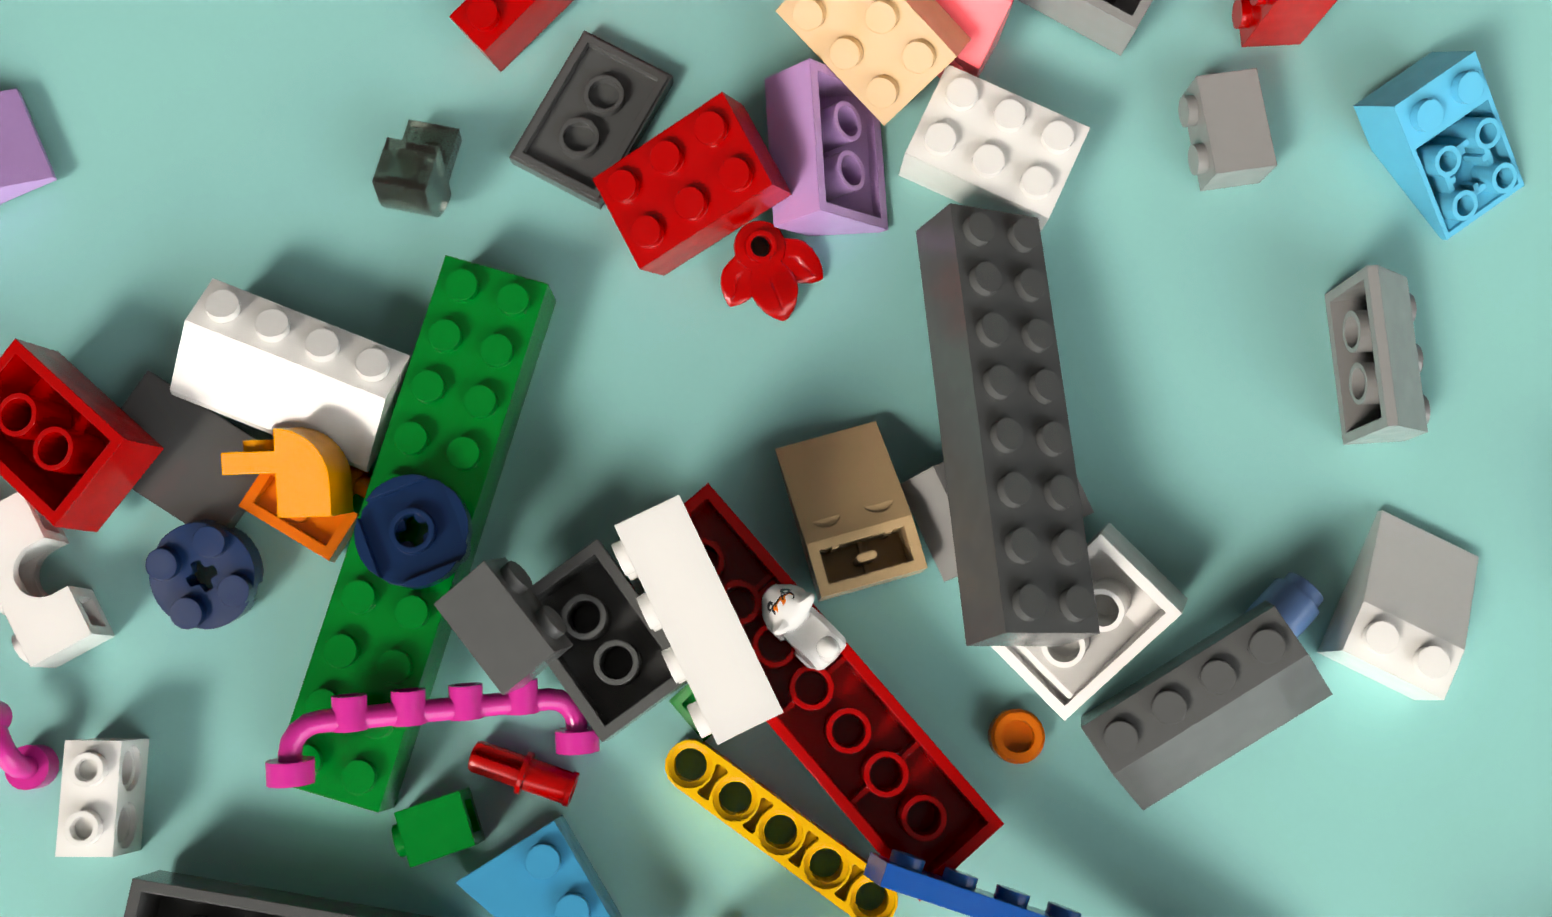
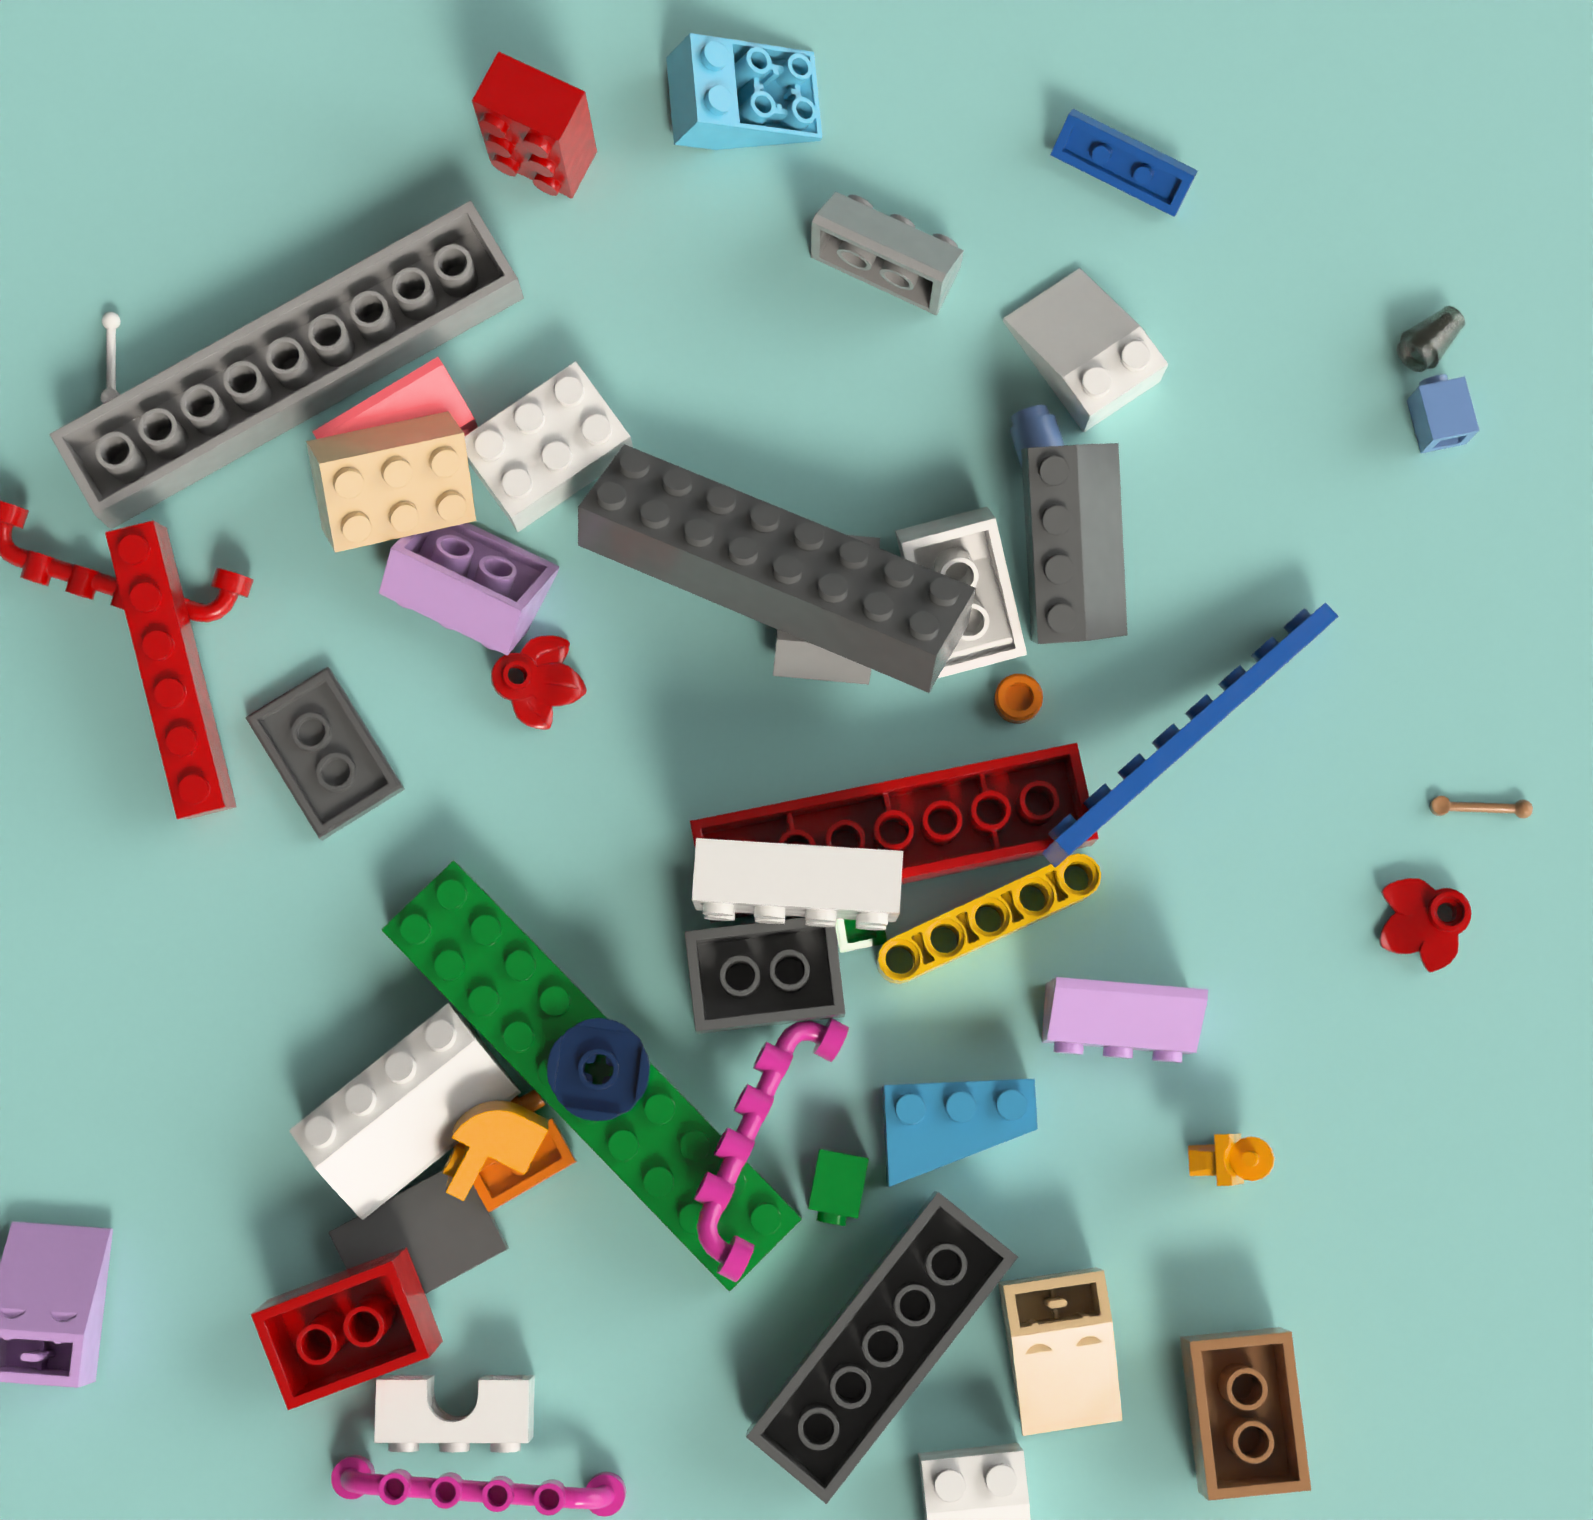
camera: 55 degrees left, 0 degrees up
(102, 797) = (664, 1441): white brick -> none
(174, 578) = (547, 1291): dark blue plate -> none
(417, 169) = (288, 914): clear smoke brick -> none
(504, 623) = (712, 1035): dark grey brick -> none
(523, 772) = (832, 1097): red axle -> none
(691, 185) = (438, 701): red brick -> none
(792, 618) = (851, 805): white animal -> none
(850, 511) = (771, 725): tan slope -> none
(1227, 129) = (636, 254): light grey brick -> none

